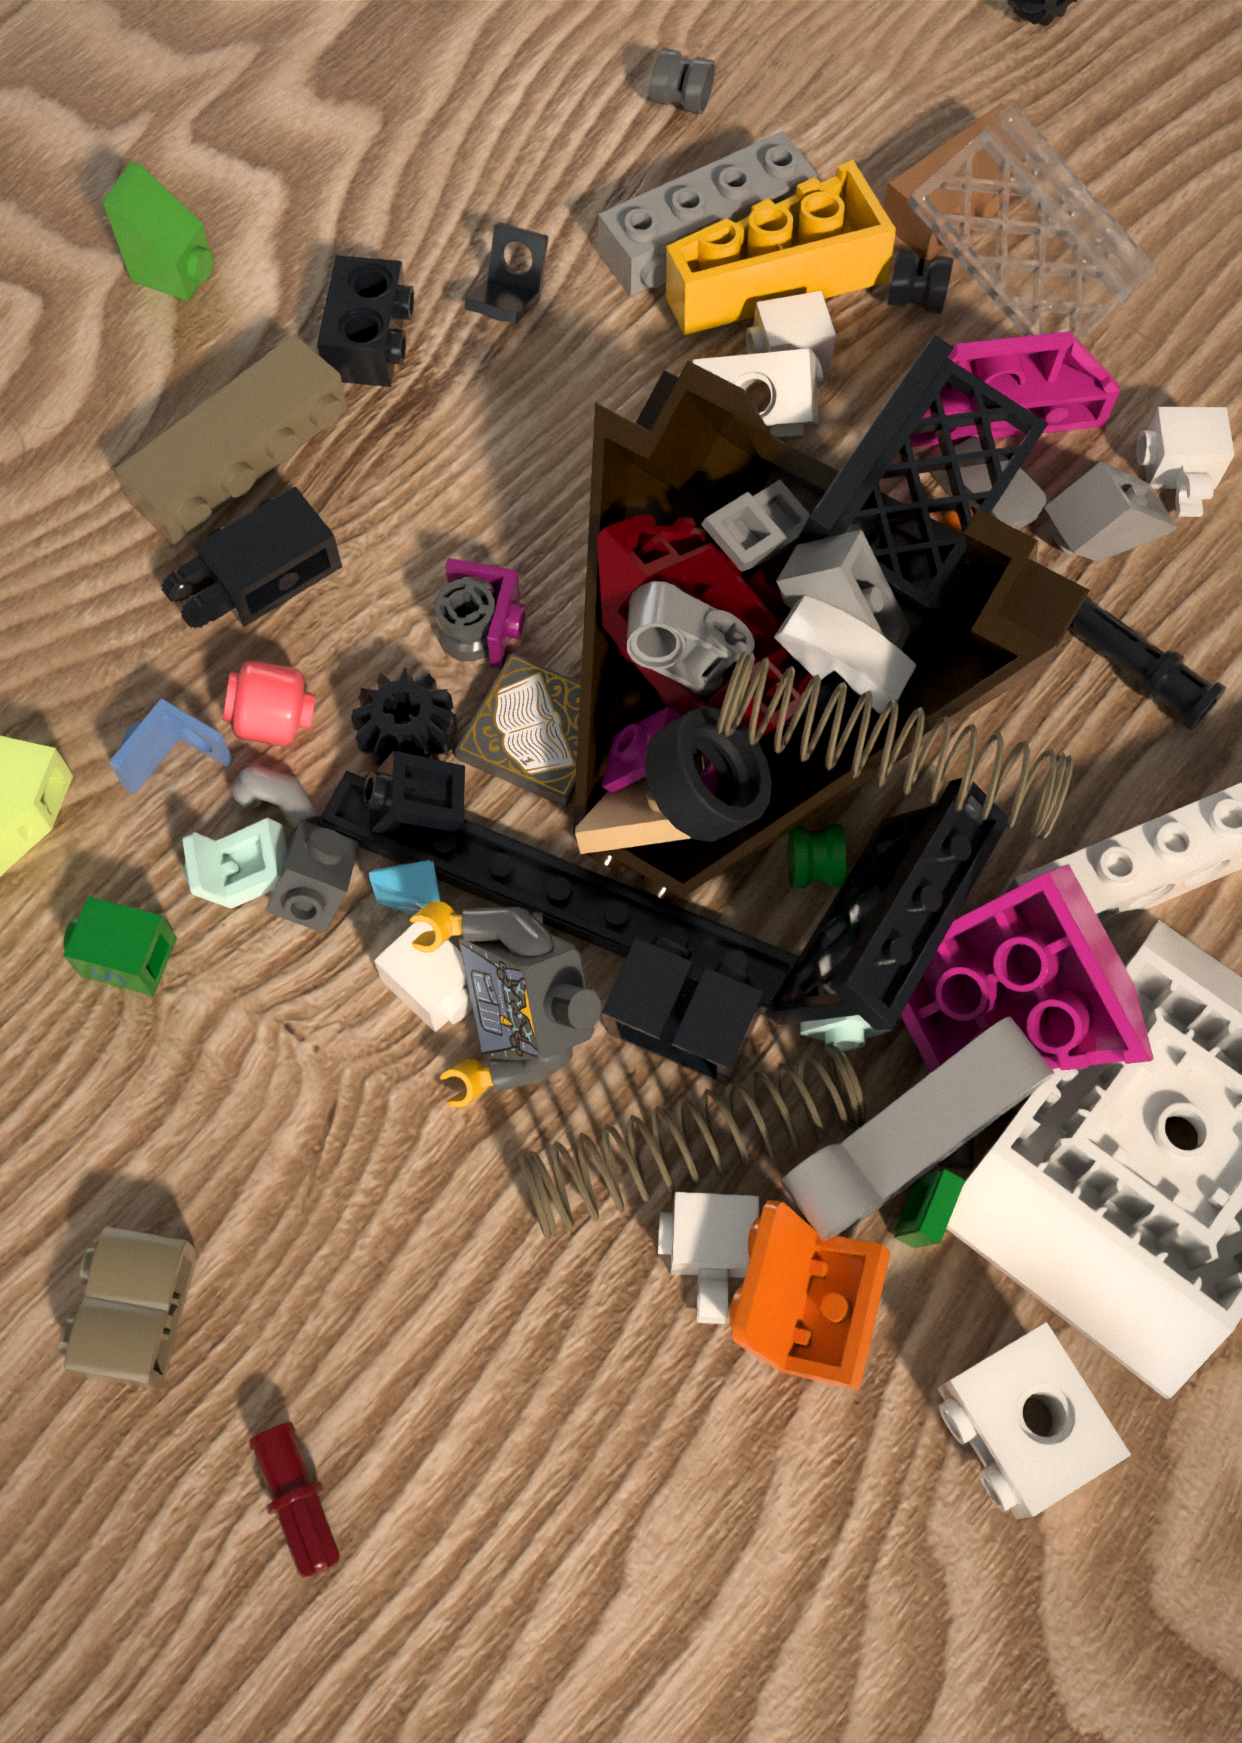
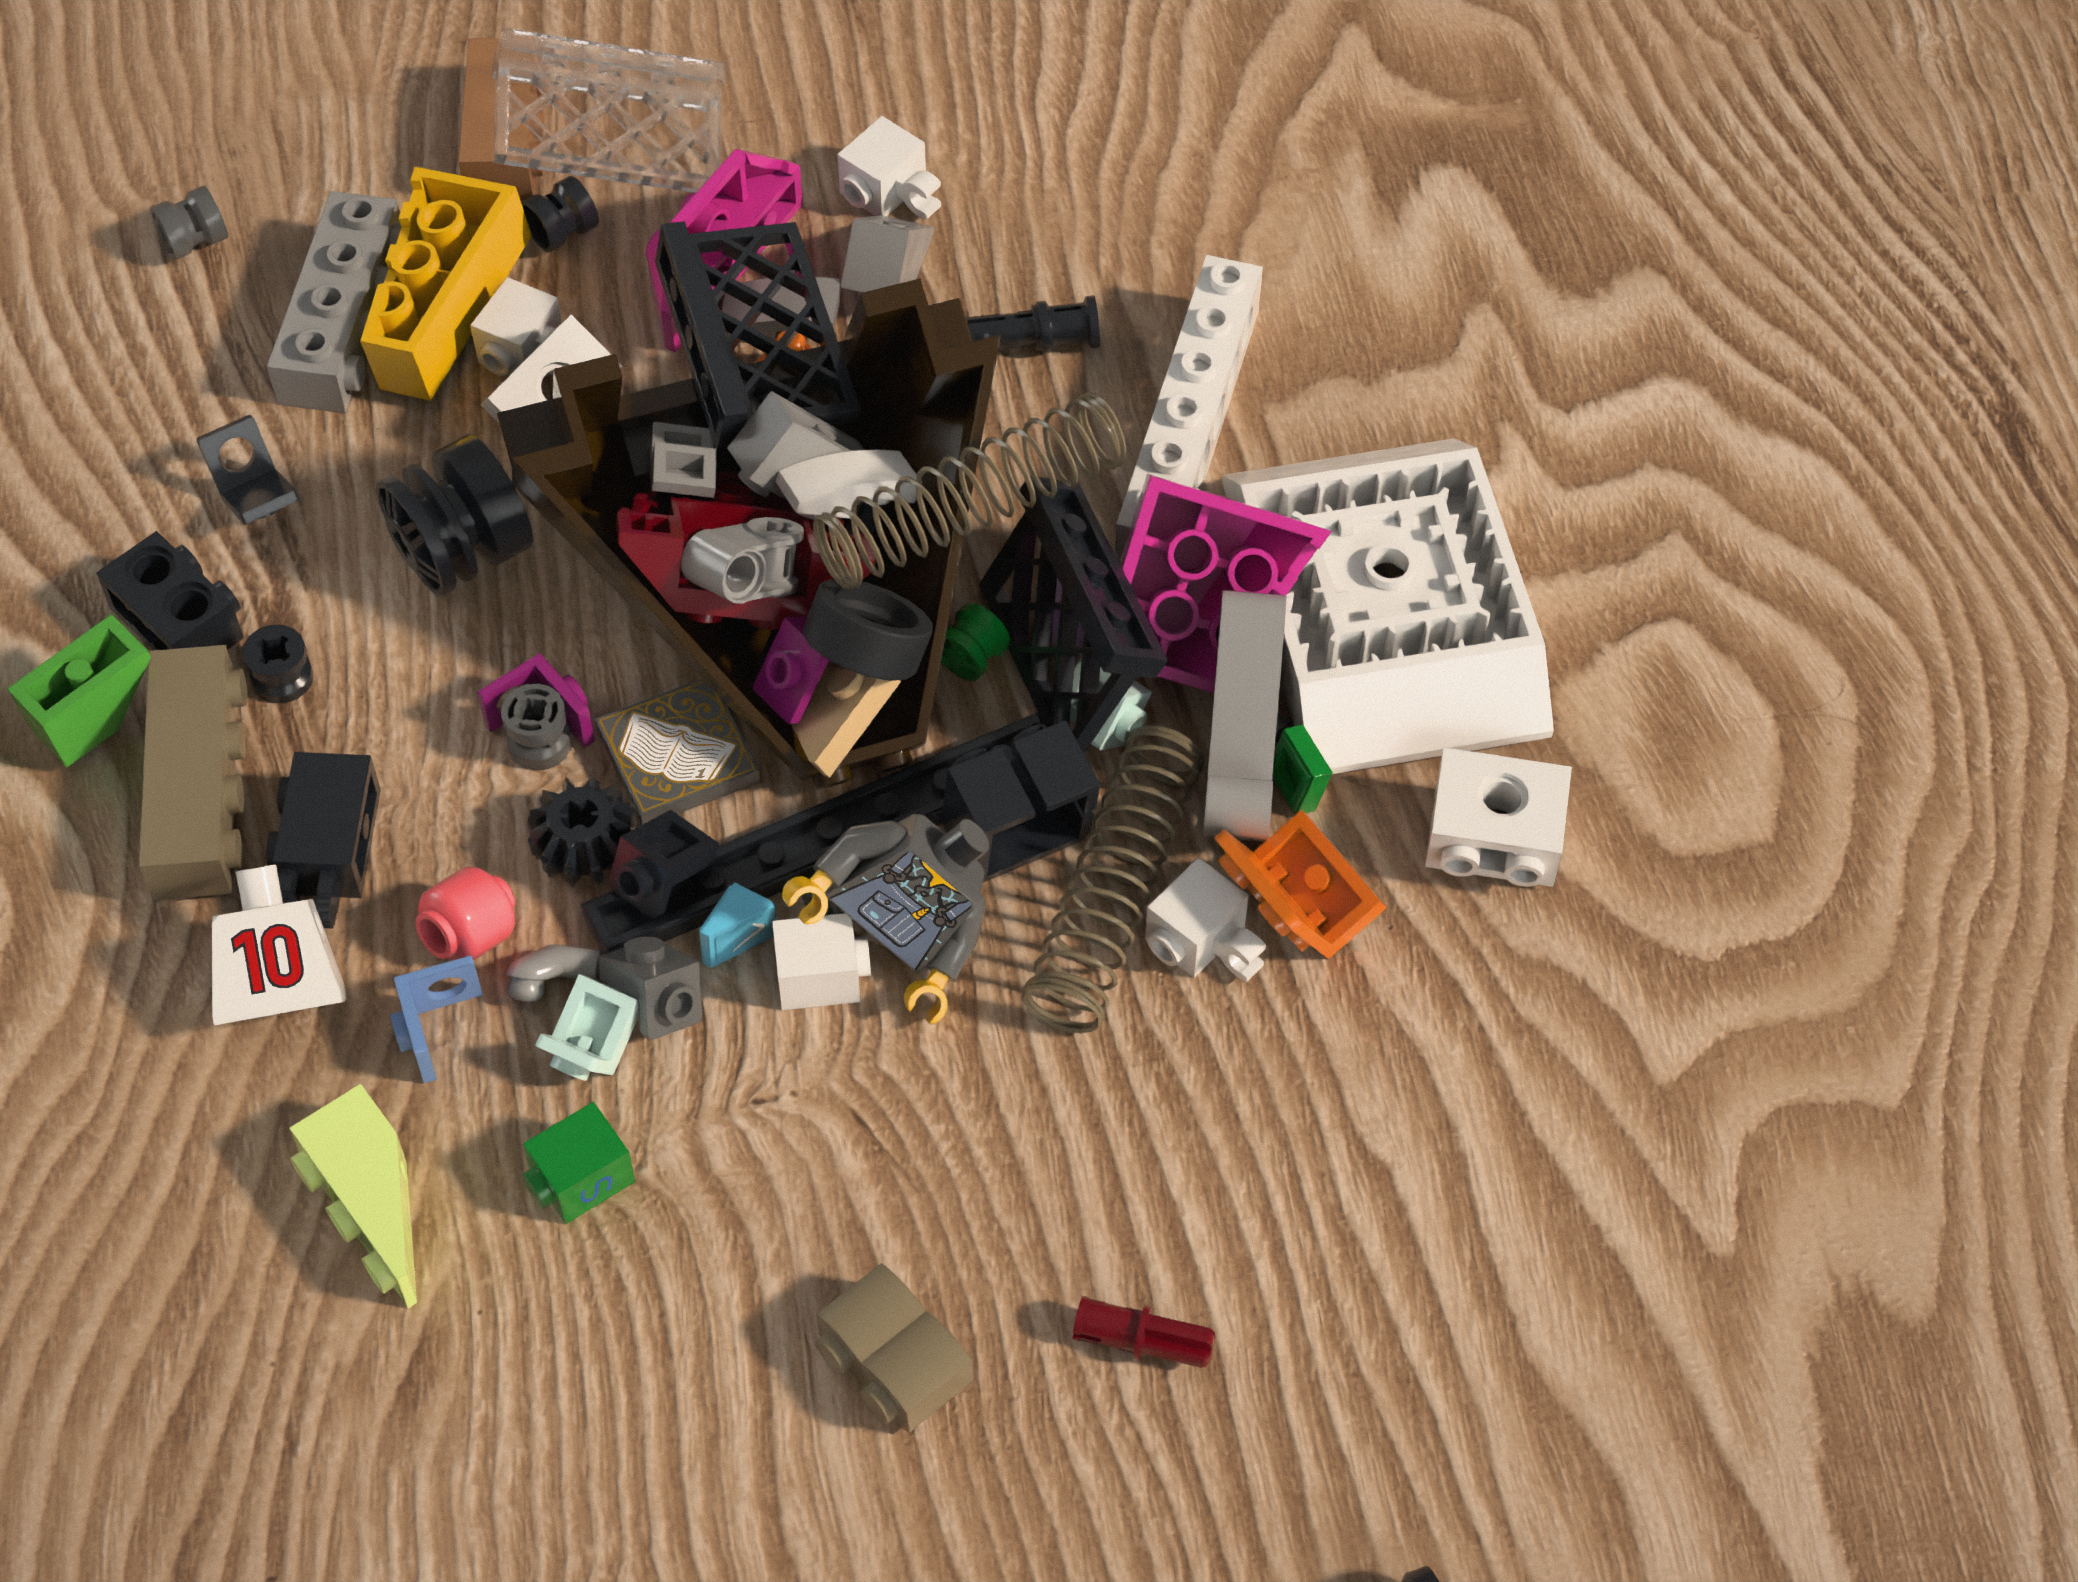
camera: 50 degrees left, 10 degrees down
(120, 608) = (270, 954): none -> white torso
(231, 323) = (82, 690): none -> bright green slope
(388, 430) = (277, 679): none -> black wheel
(561, 412) = (463, 510): none -> black wheel

